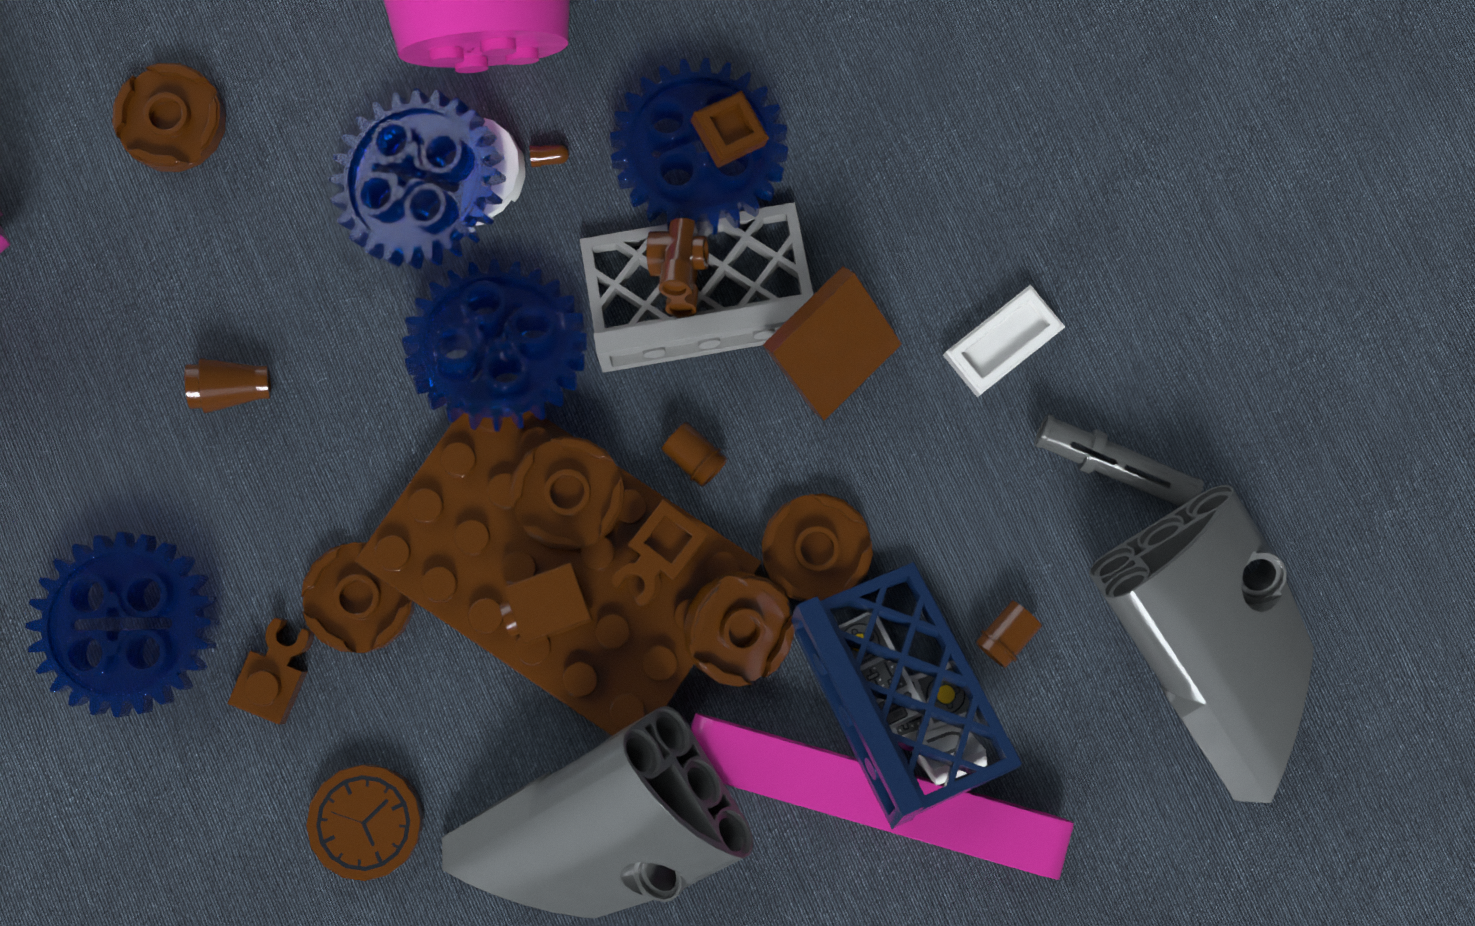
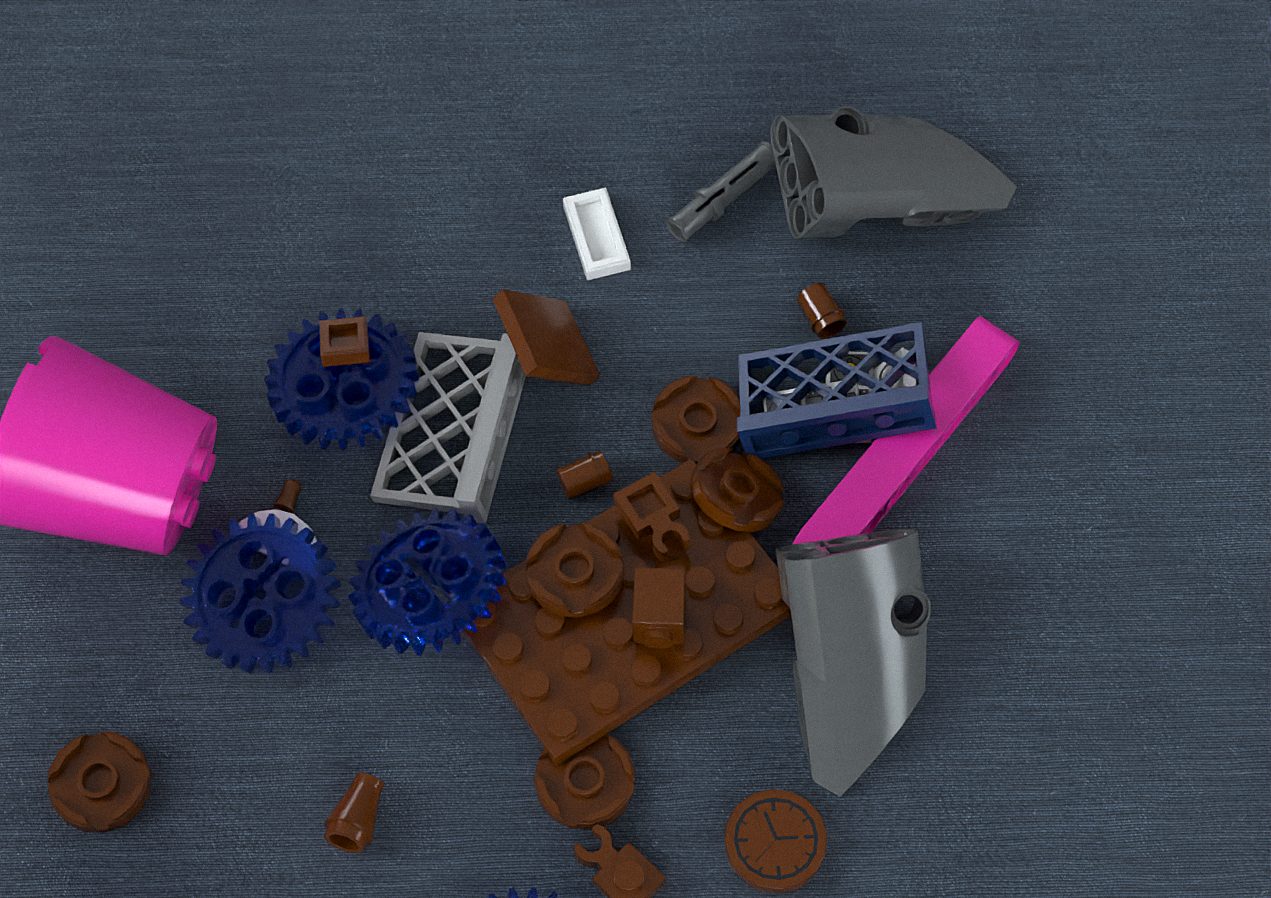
camera: 65 degrees left, 20 degrees down
(676, 258) = (429, 414): reddish brown plate -> none

